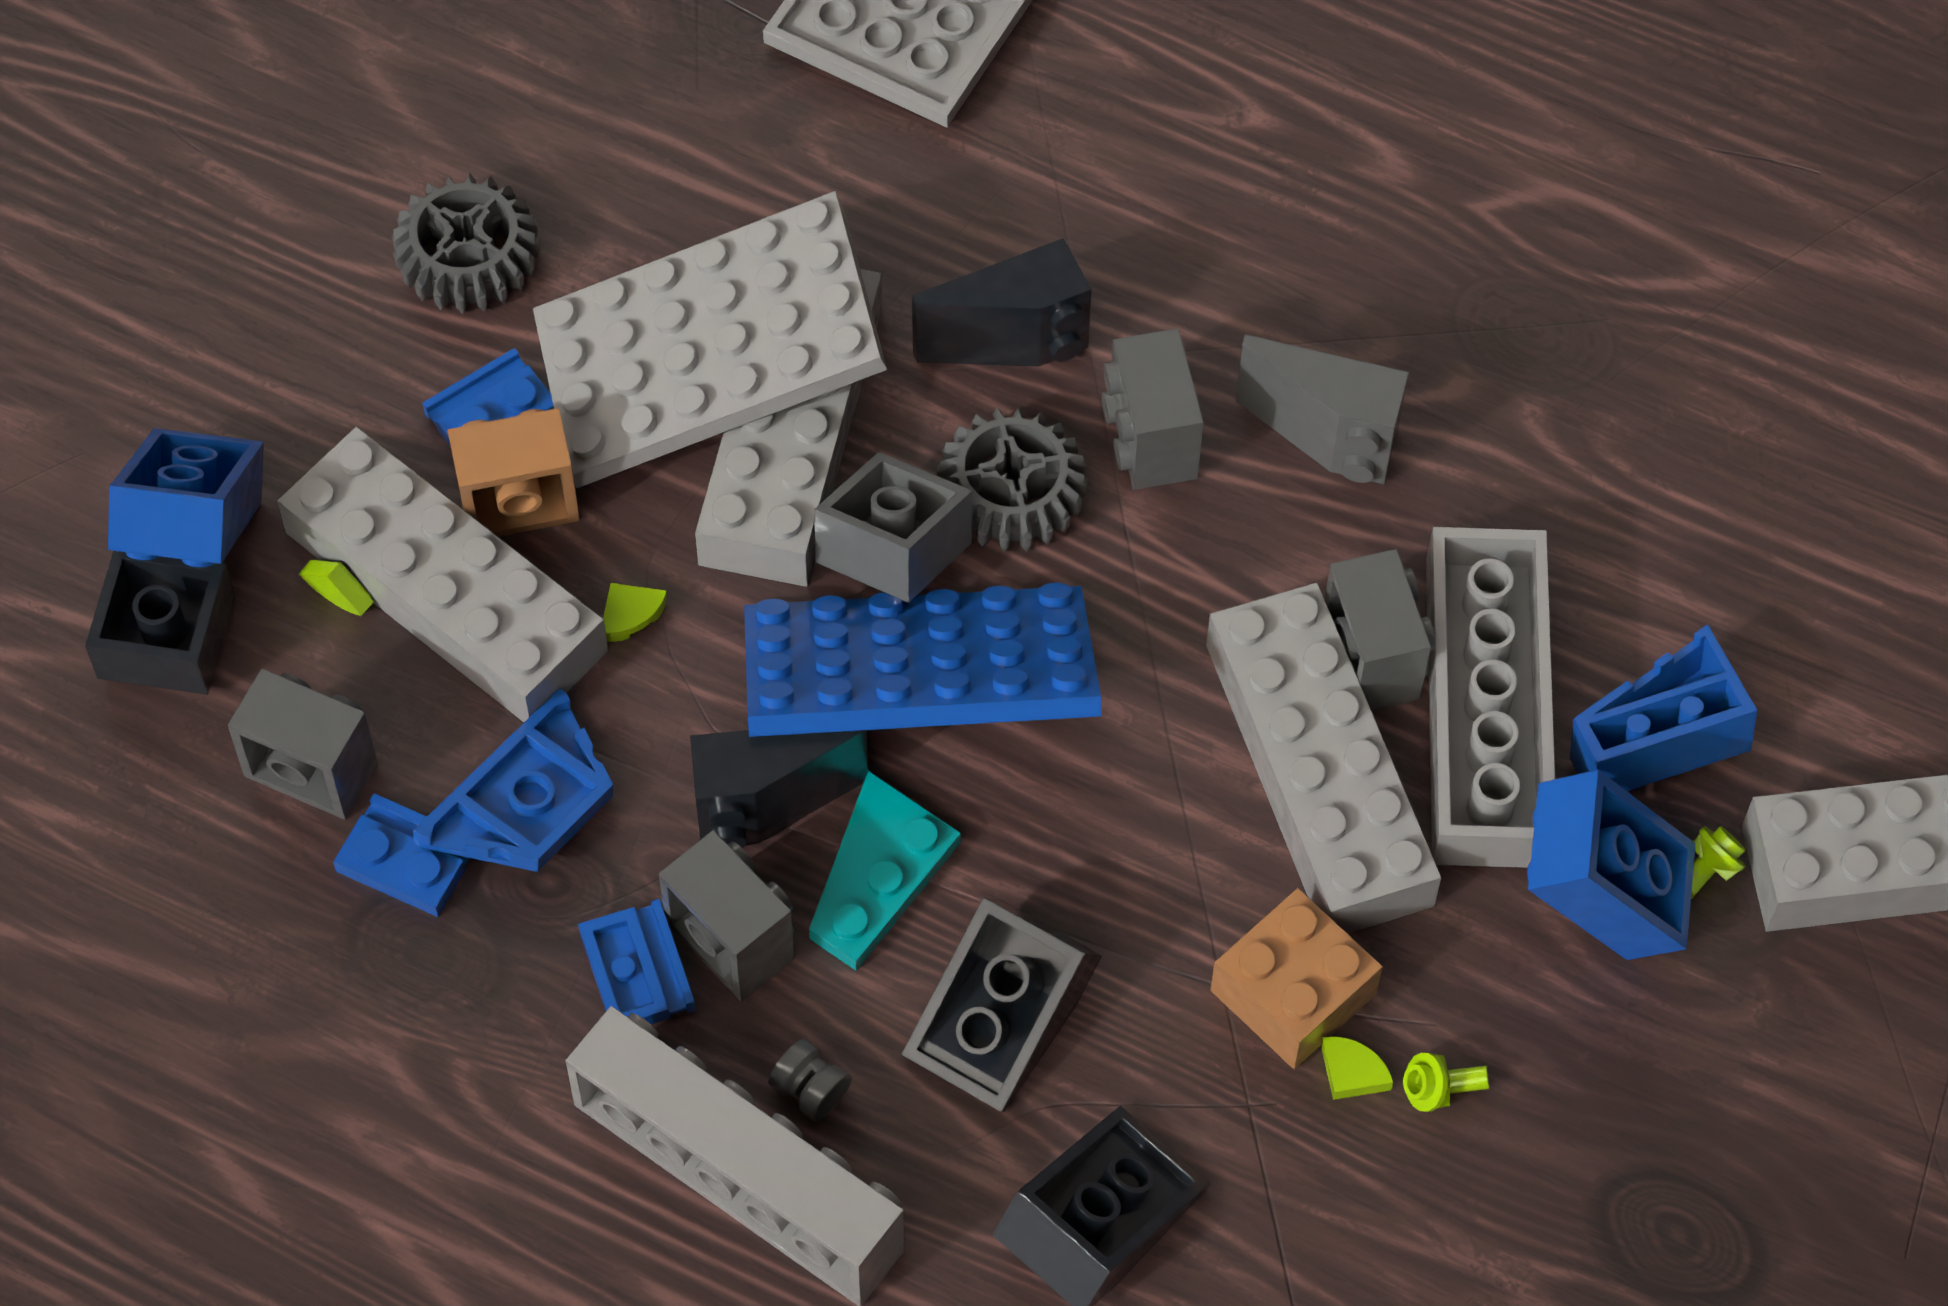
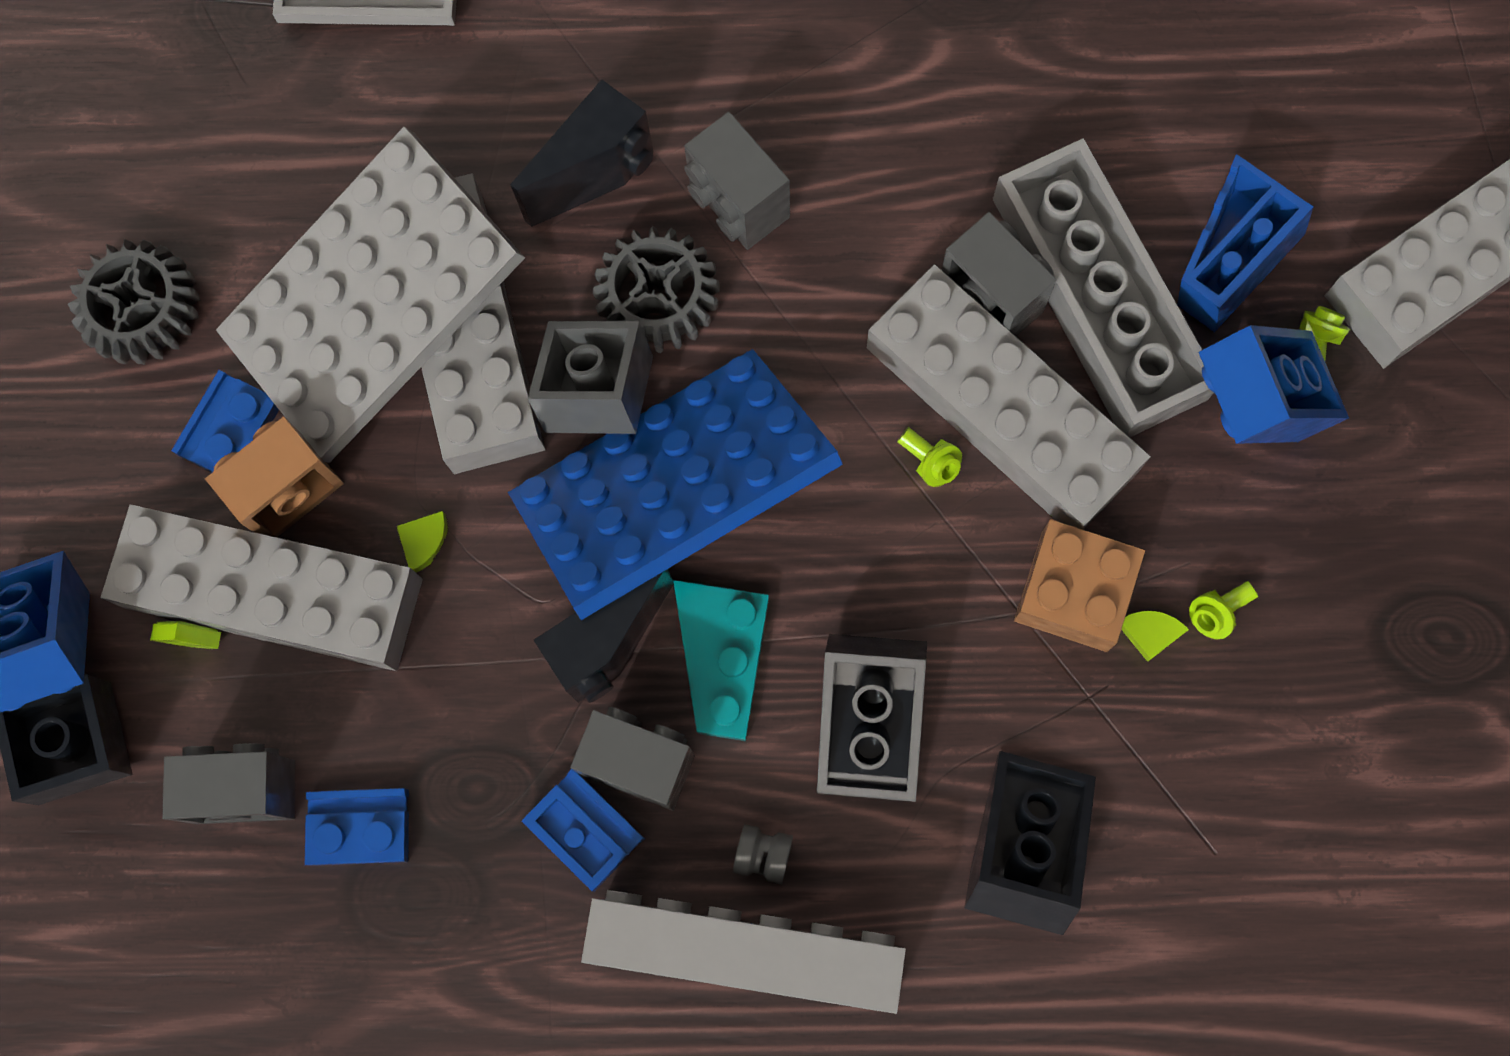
camera: 20 degrees left, 15 degrees up
(523, 795) = (423, 735): blue wing -> none
(1217, 790) = (935, 459): none -> lime plate
(1325, 405) = (864, 116): dark grey slope -> none

